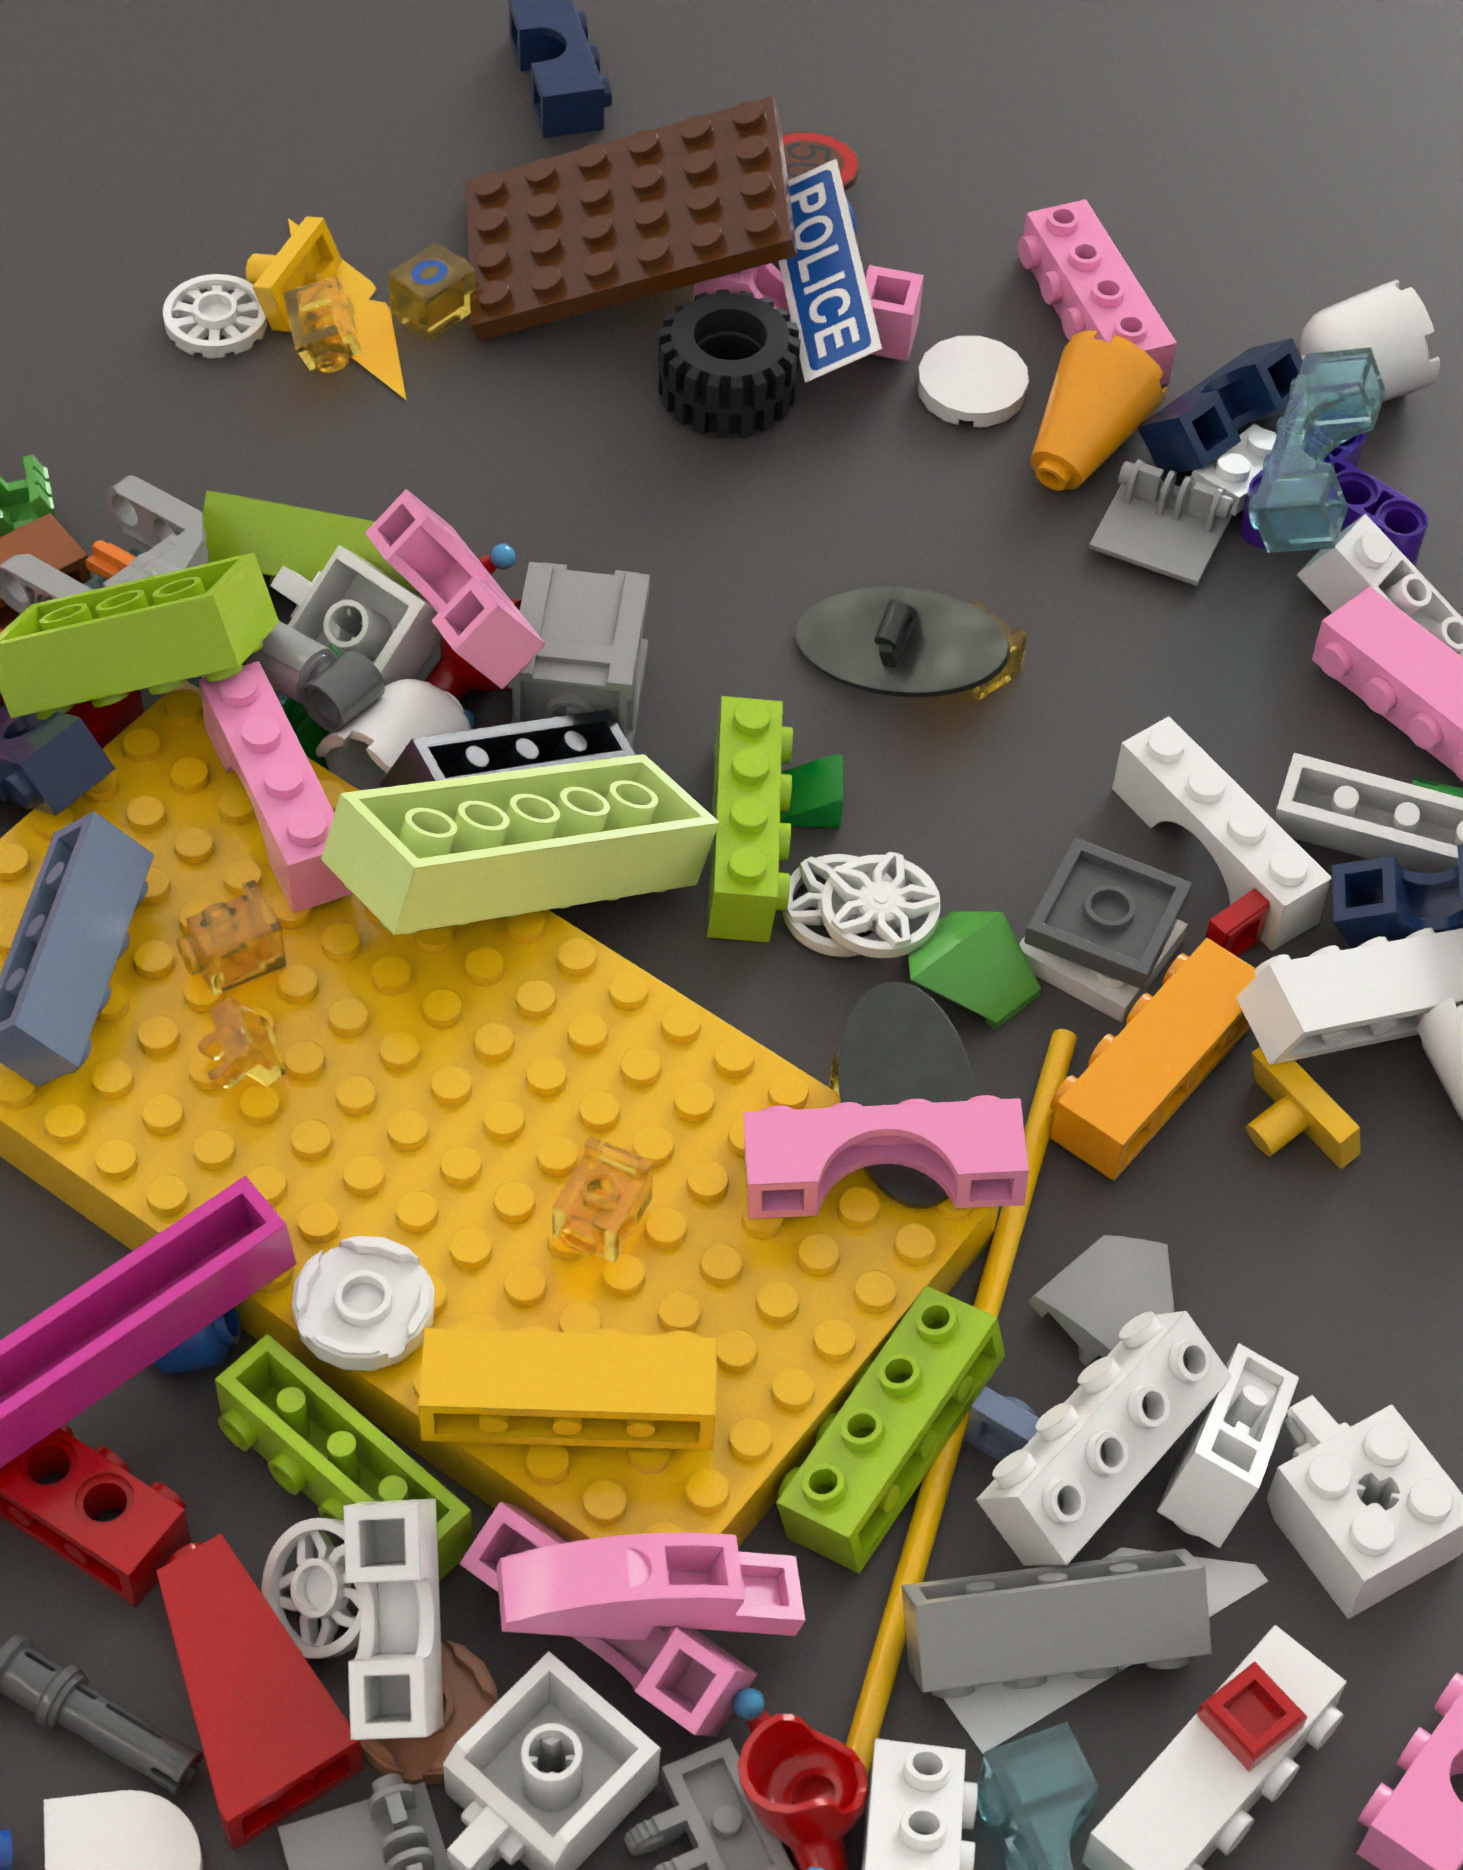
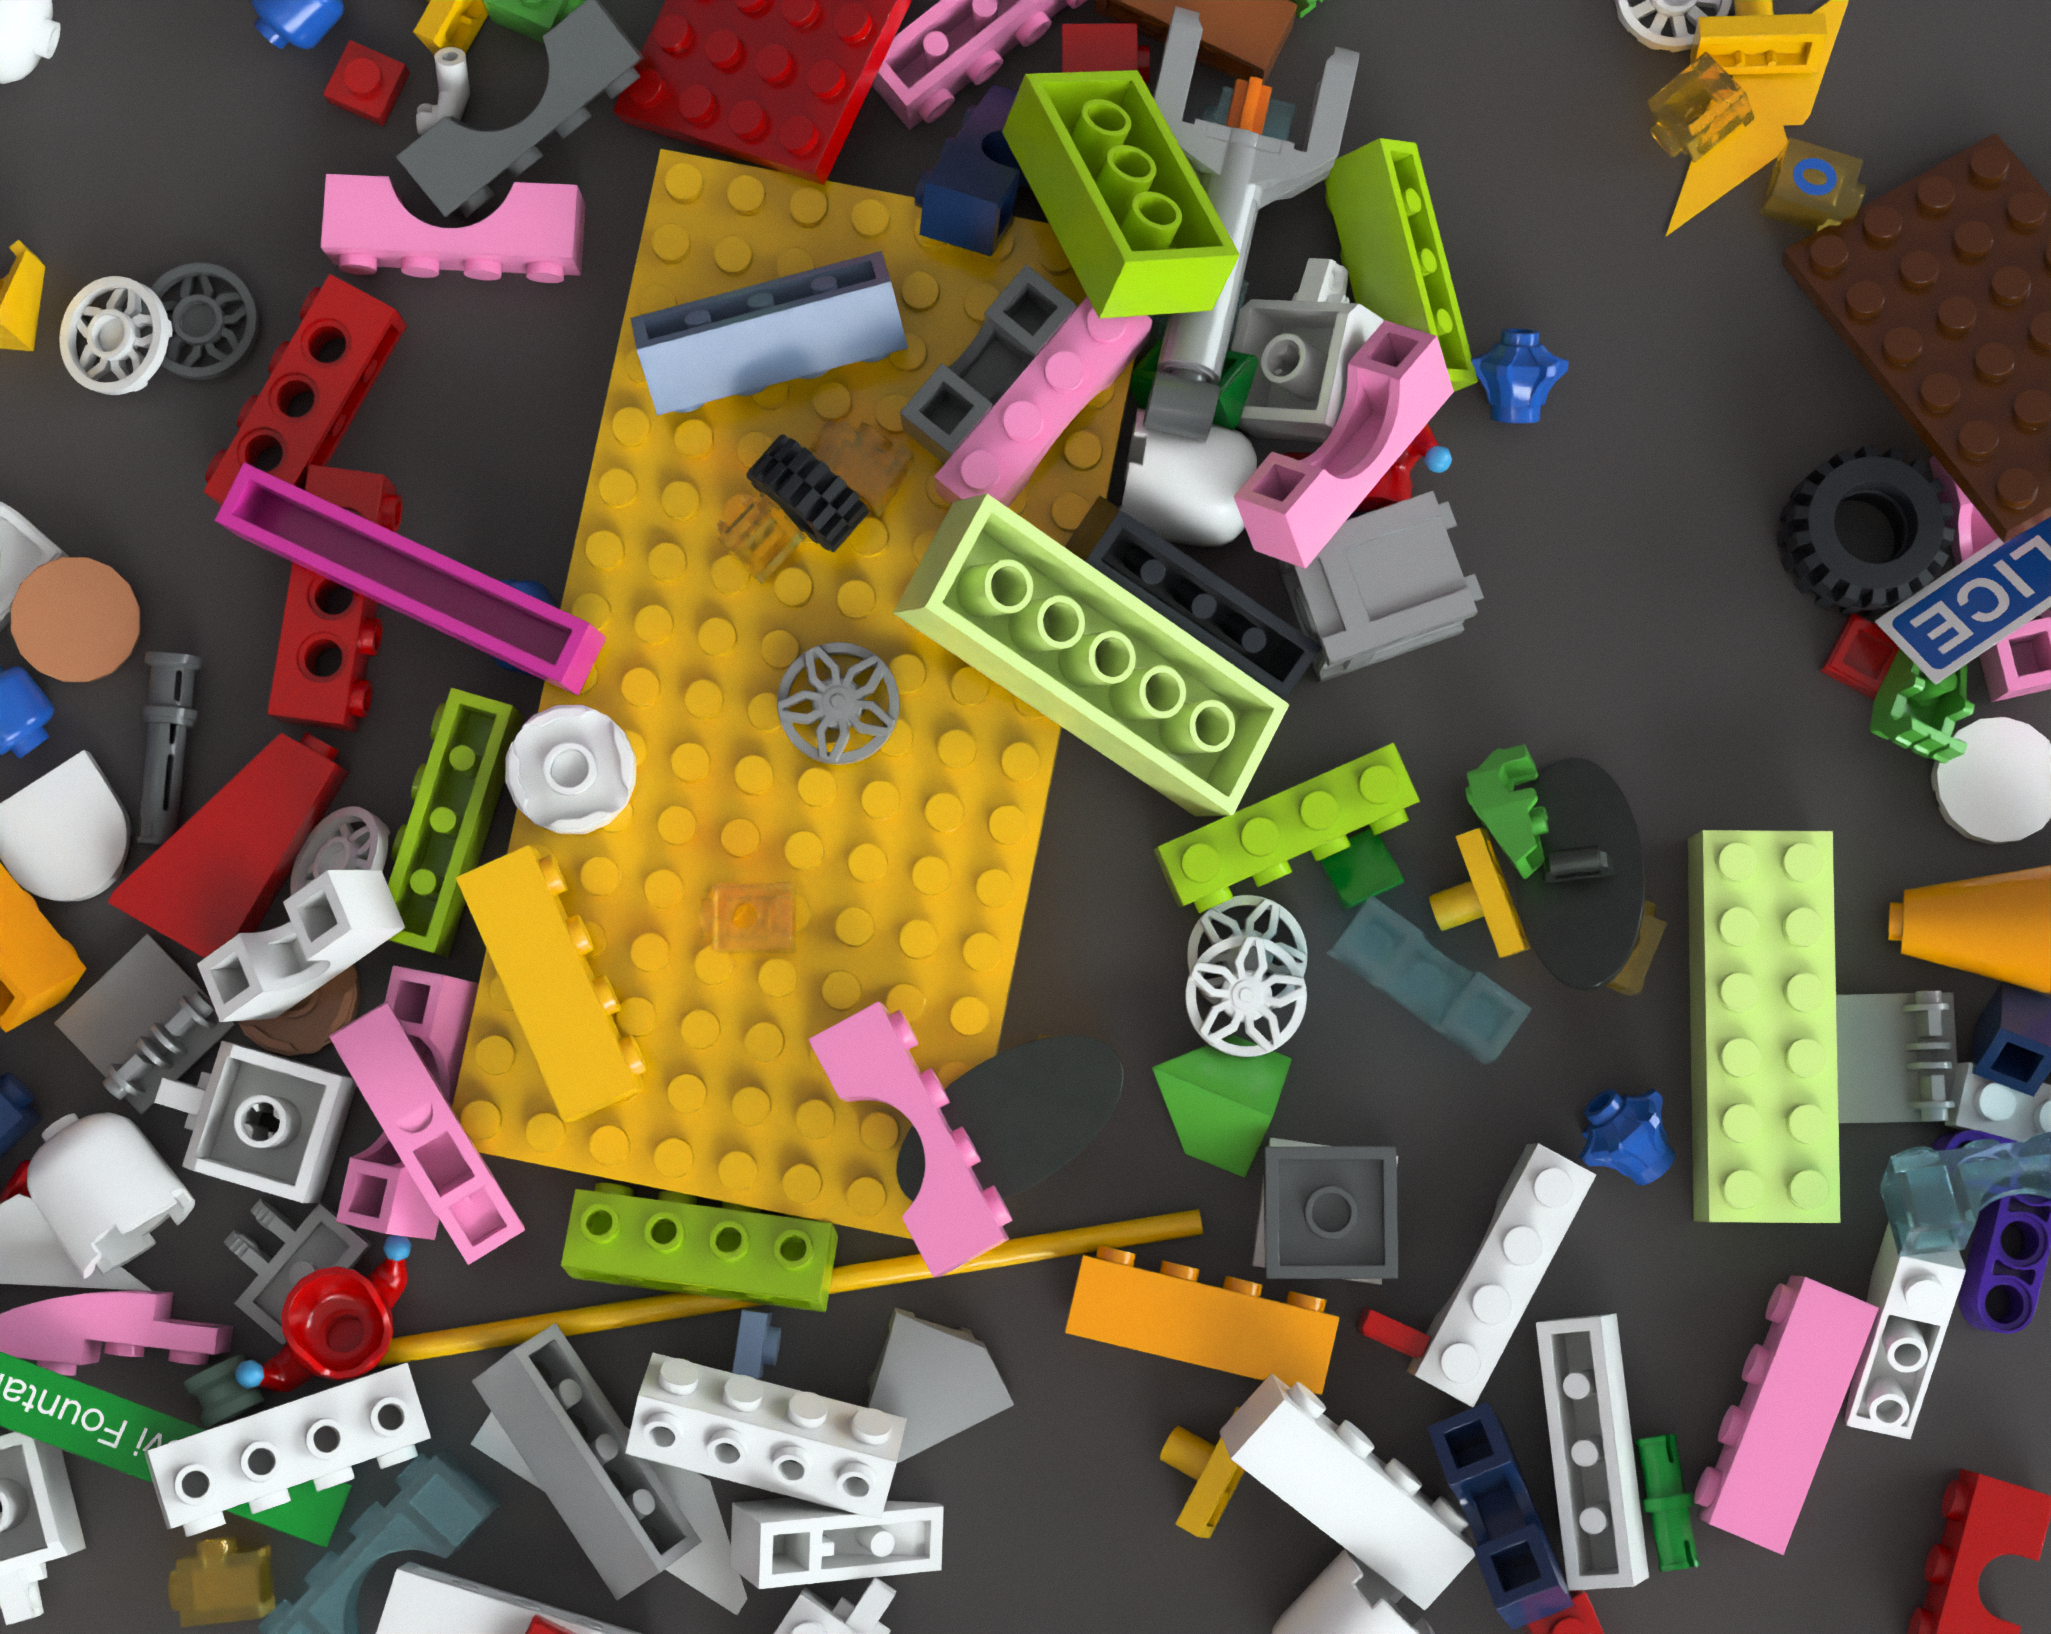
camera: 70 degrees right, 30 degrees up
(220, 819) = (1008, 341): none -> dark grey arch
(234, 961) = (808, 492): none -> black tyre
(438, 1059) = (838, 703): none -> light grey wheel
(465, 508) = (1518, 375): none -> blue rock
(825, 664) = (1510, 812): none -> bright green hand
(826, 417) = (1860, 656): none -> red tile
(884, 713) = (1482, 896): none -> yellow tile
(889, 388) = (1919, 712): none -> bright green hand
(980, 759) = (1427, 983): none -> clear light blue arch
(1098, 583) = (1763, 1027): none -> yellowish green brick
(1141, 698) = (1627, 1135): none -> blue rock

